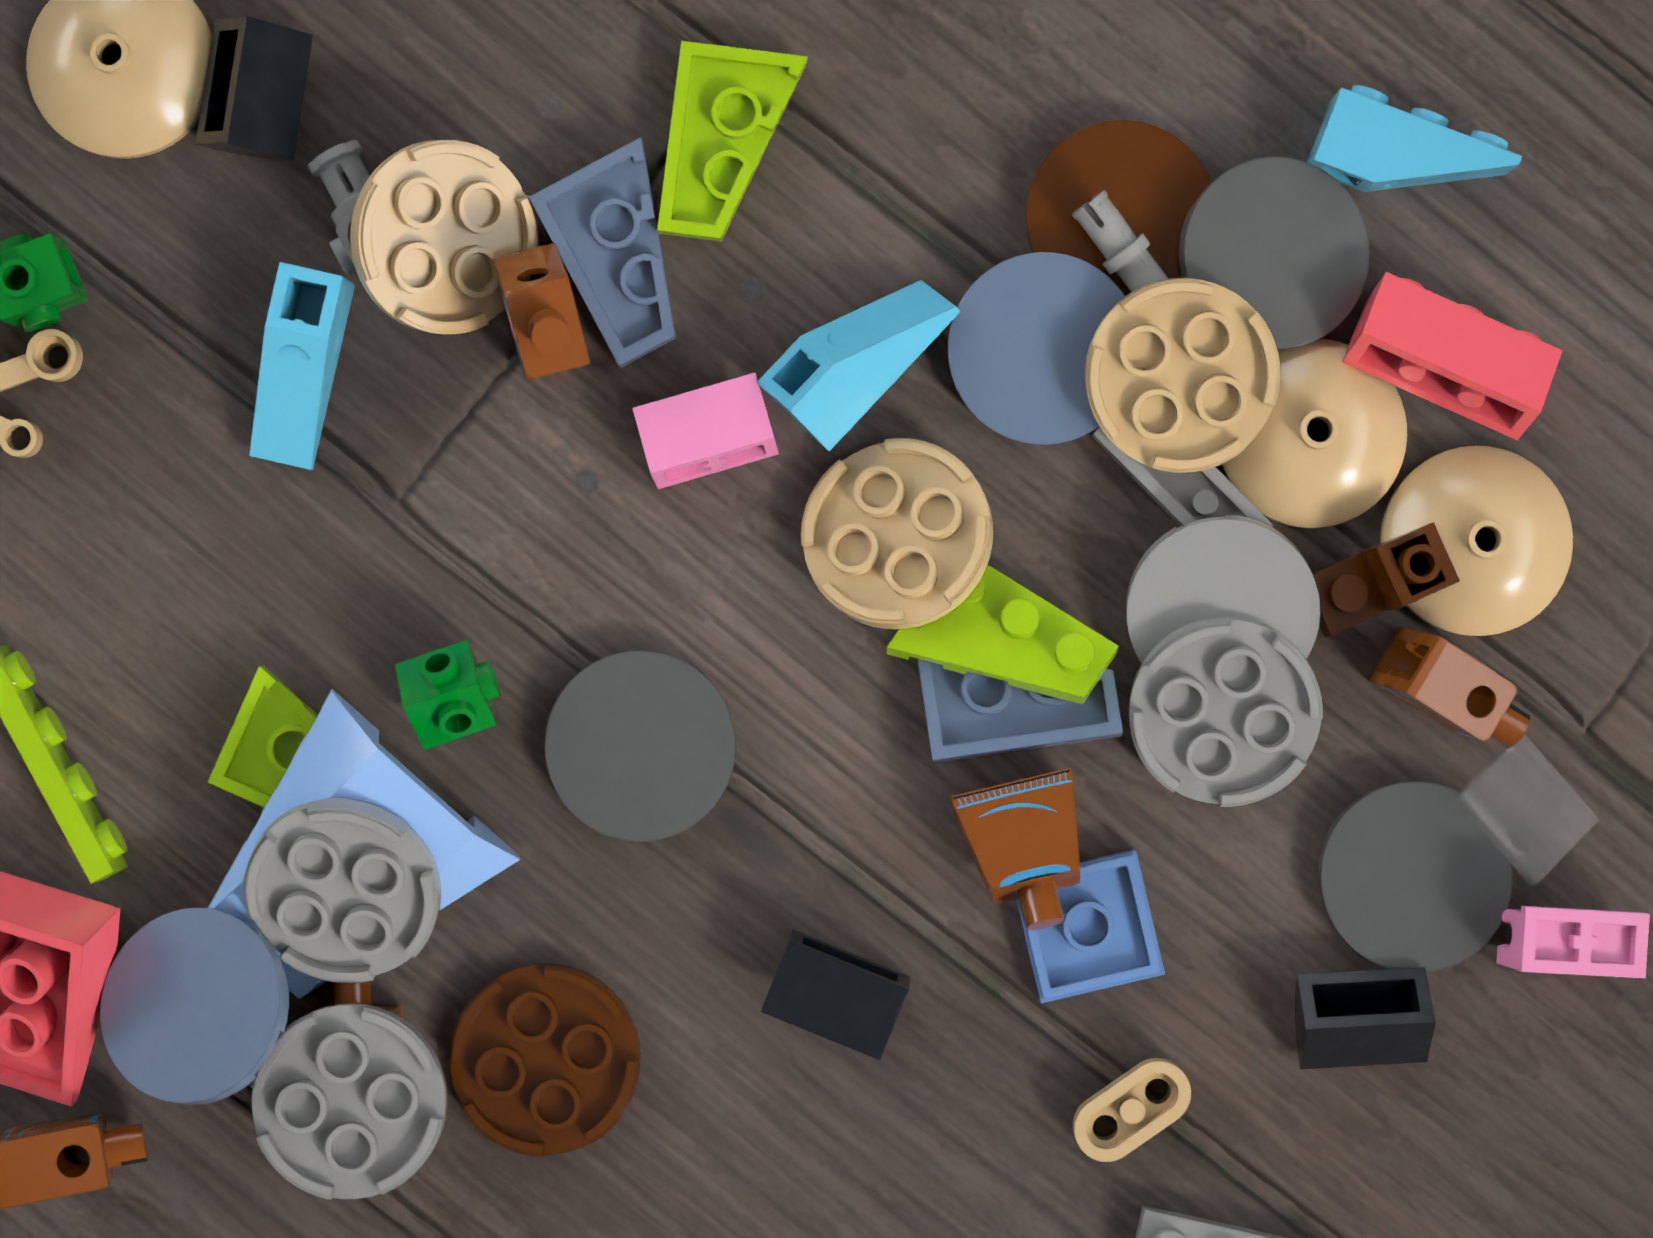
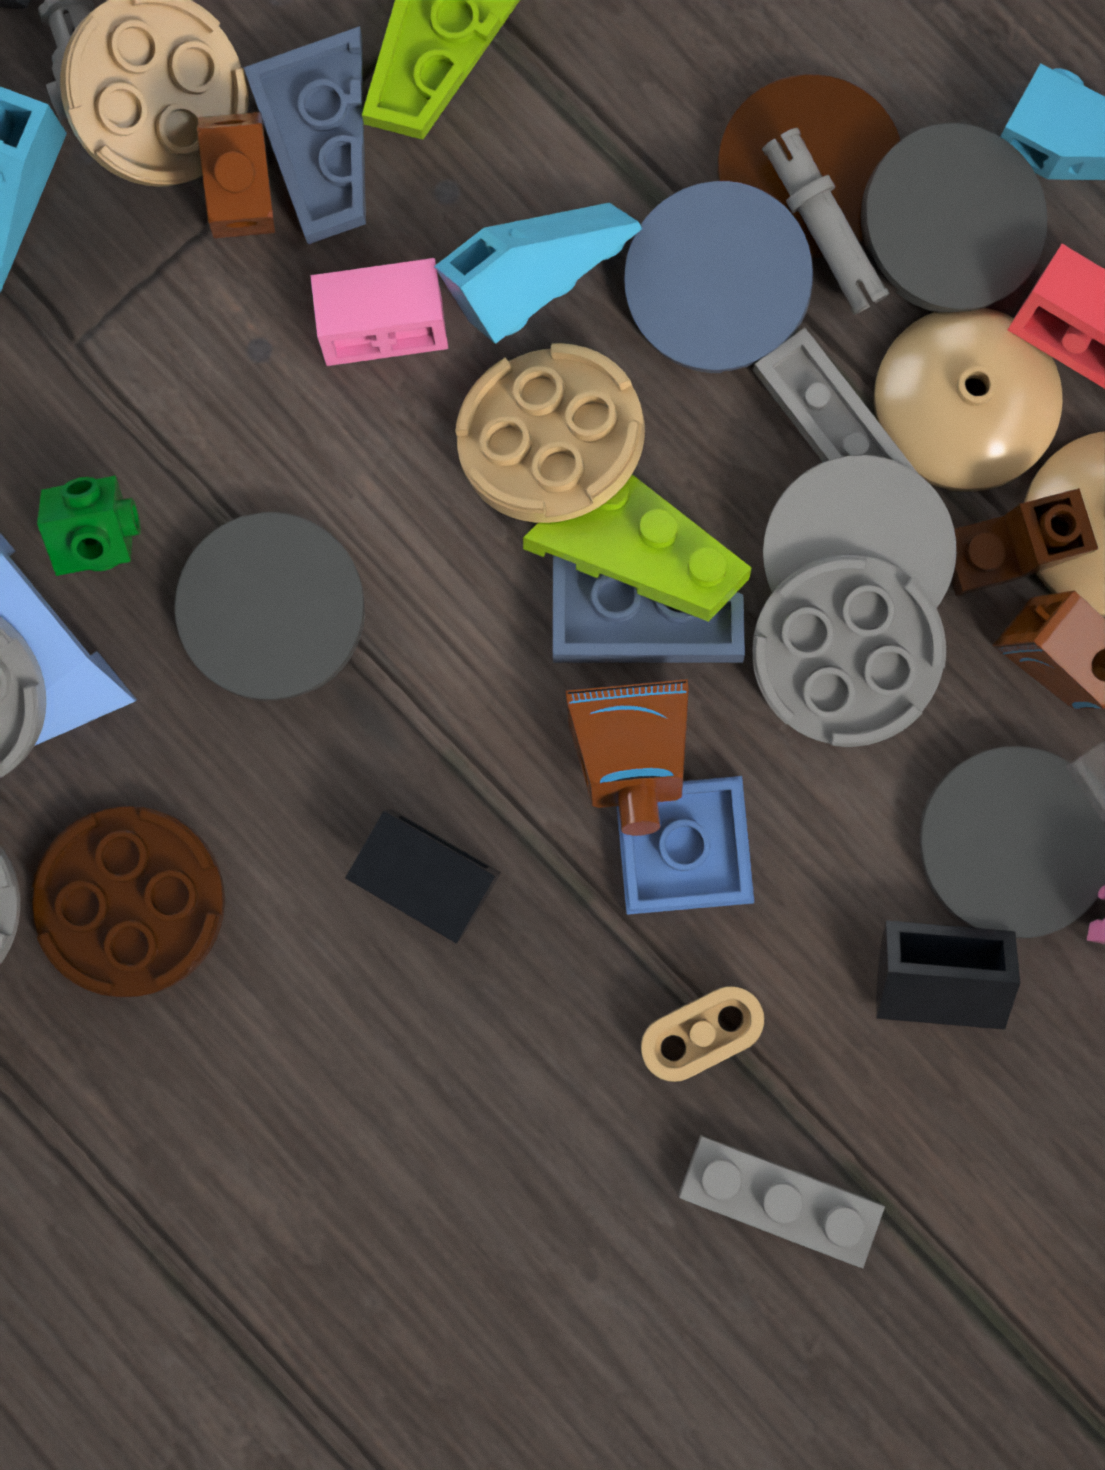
camera: 20 degrees right, 5 degrees down
(1182, 375) = (849, 313): tan tile -> none

